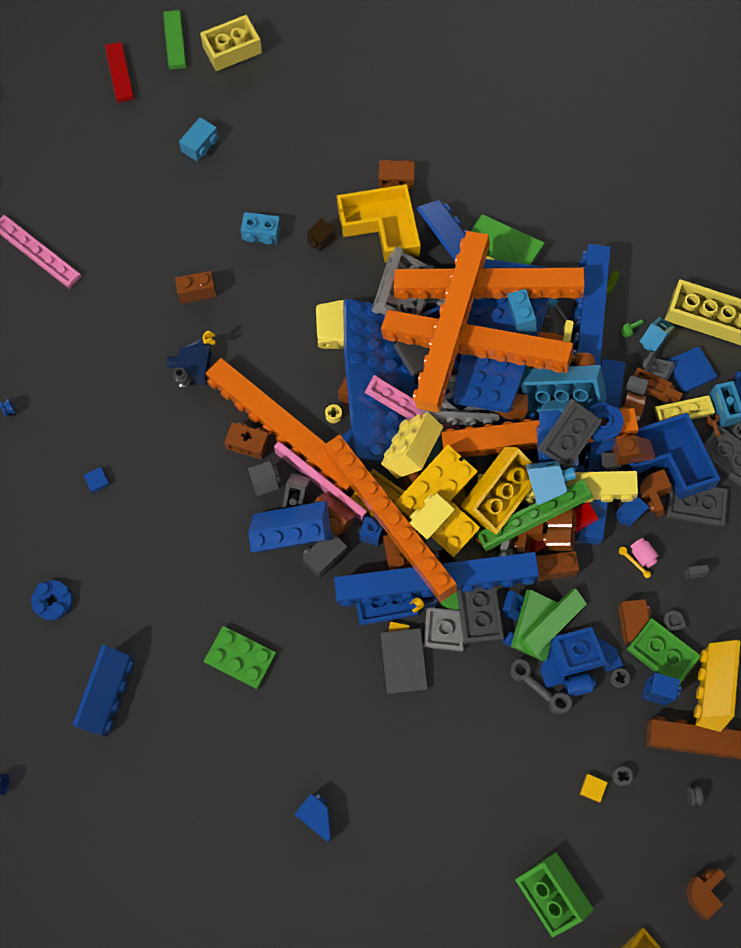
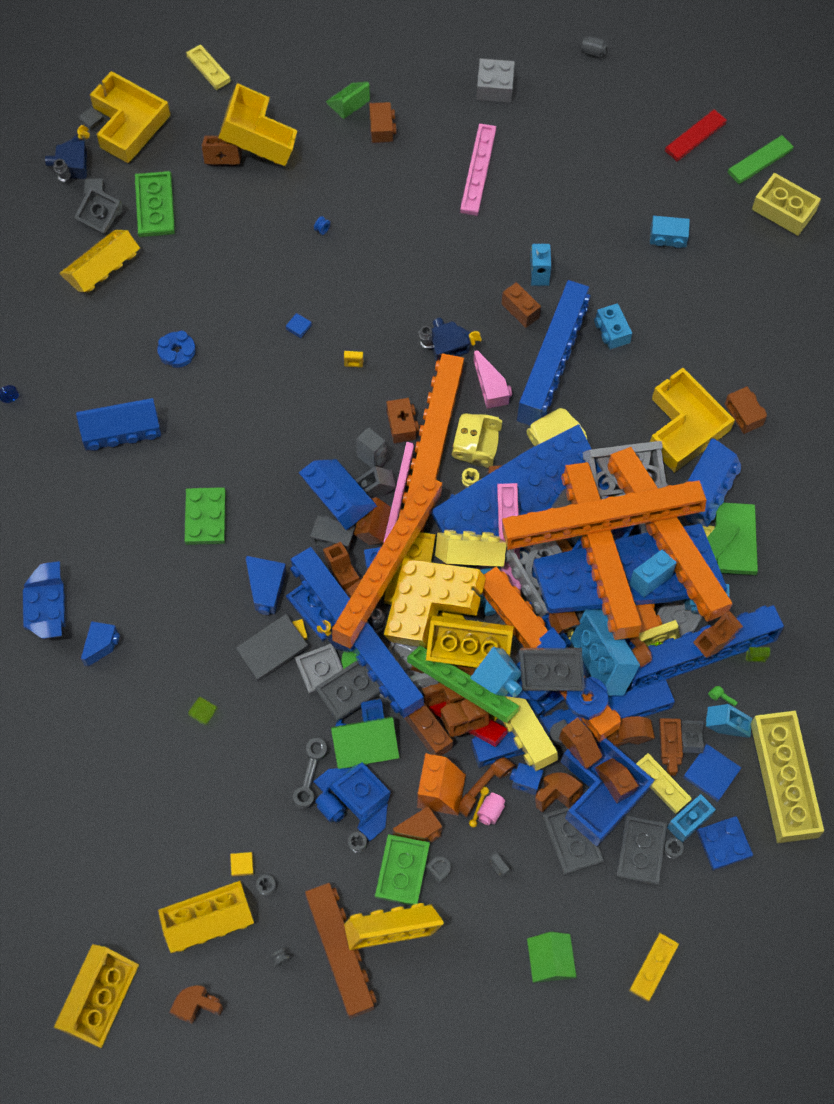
camera: 60 degrees right, 5 degrees down
(161, 449) = (353, 359): none -> yellow tile
(166, 251) = (540, 258): none -> dark azure torso
(248, 851) = (44, 601): none -> blue piece
(255, 349) = (492, 383): none -> bright pink slope
(261, 285) = (554, 353): none -> blue brick
(302, 390) = (477, 439): none -> light yellow piece
(320, 234) = (639, 378): dark brown brick -> none
(339, 636) = (266, 583): none -> blue slope
(357, 562) = (340, 565): none -> dark orange brick
(431, 753) = (202, 711): none -> clear neon green tile
(432, 515) = (406, 591): light yellow brick -> none
(553, 622) = (376, 756): bright green tile -> none
(554, 895) = (129, 871): bright green slope -> none
(598, 295) = (719, 635): none -> dark orange brick
(606, 585) = (440, 785): none -> orange slope
(611, 528) = (499, 768): none -> dark orange piece
(628, 844) = (205, 917): none -> yellow slope
(637, 385) = (658, 723): dark grey brick -> none
(661, 689) = (362, 878): blue brick -> none
(670, 440) = (617, 779): none -> dark orange slope
(713, 423) = (665, 818): dark orange hand -> none

